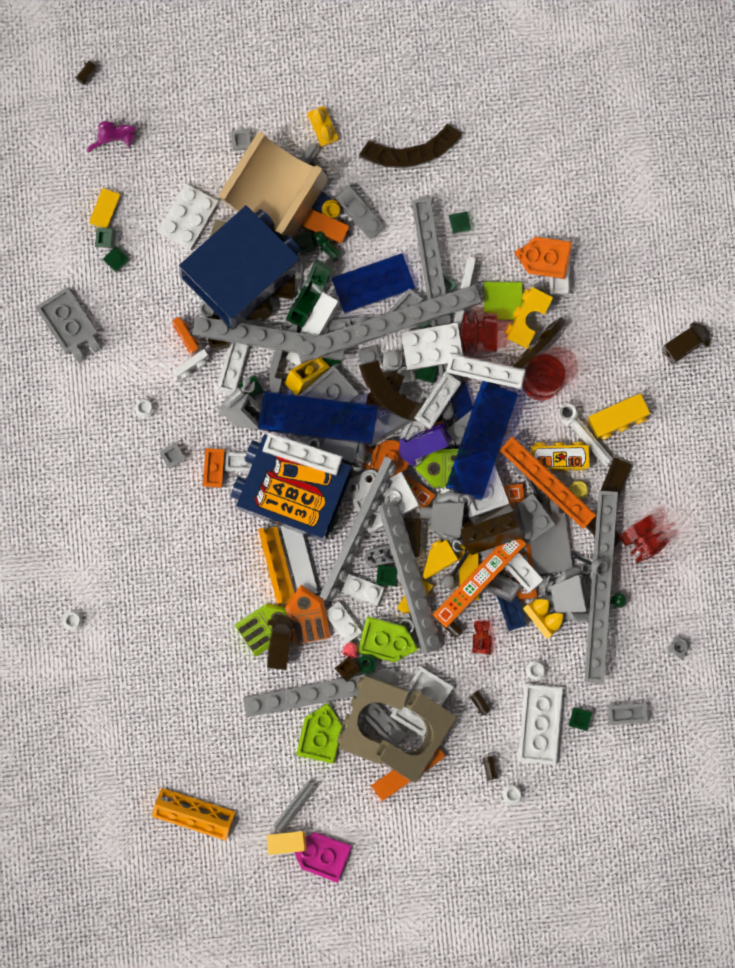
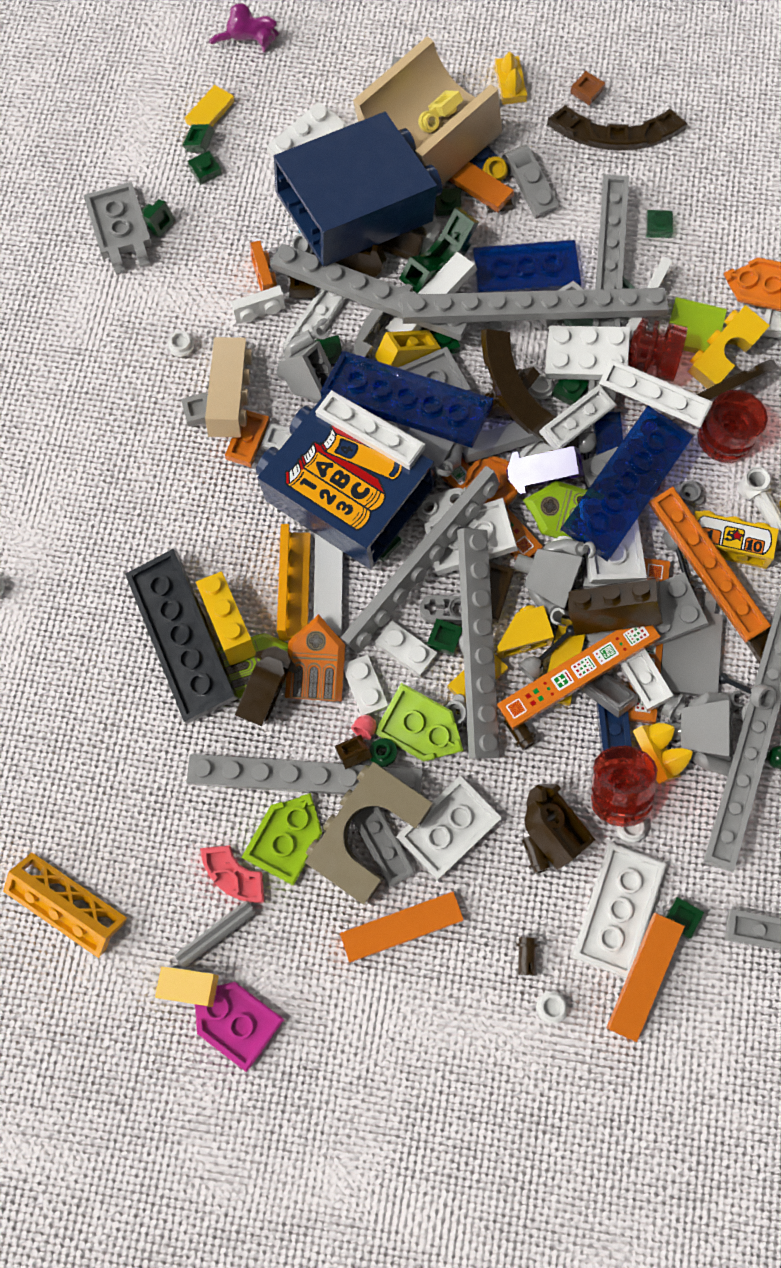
camera: 20 degrees right, 10 degrees down
(96, 312) = (158, 217): none -> dark green tile
(190, 436) = (227, 387): none -> tan brick
(212, 621) = (181, 636): none -> black plate
(240, 602) = (226, 618): none -> yellow brick
(281, 177) = (443, 106): none -> light yellow plate
(292, 768) = (232, 877): none -> coral tile
(320, 239) = (477, 208): dark green axle -> none
(382, 121) = (587, 88): none -> dark orange plate
(392, 361) = (527, 360): white plate -> none
(437, 723) = (464, 864): dark tan arch -> none
(482, 641) = (560, 763): clear red plate -> none
(488, 683) = (555, 825): none -> dark brown piece
(524, 647) = (623, 786): none -> clear red wheel
(525, 425) = (693, 489): none -> light grey plate
(564, 761) = (645, 977): none -> orange tile
(579, 489) = (753, 587): light yellow plate -> none

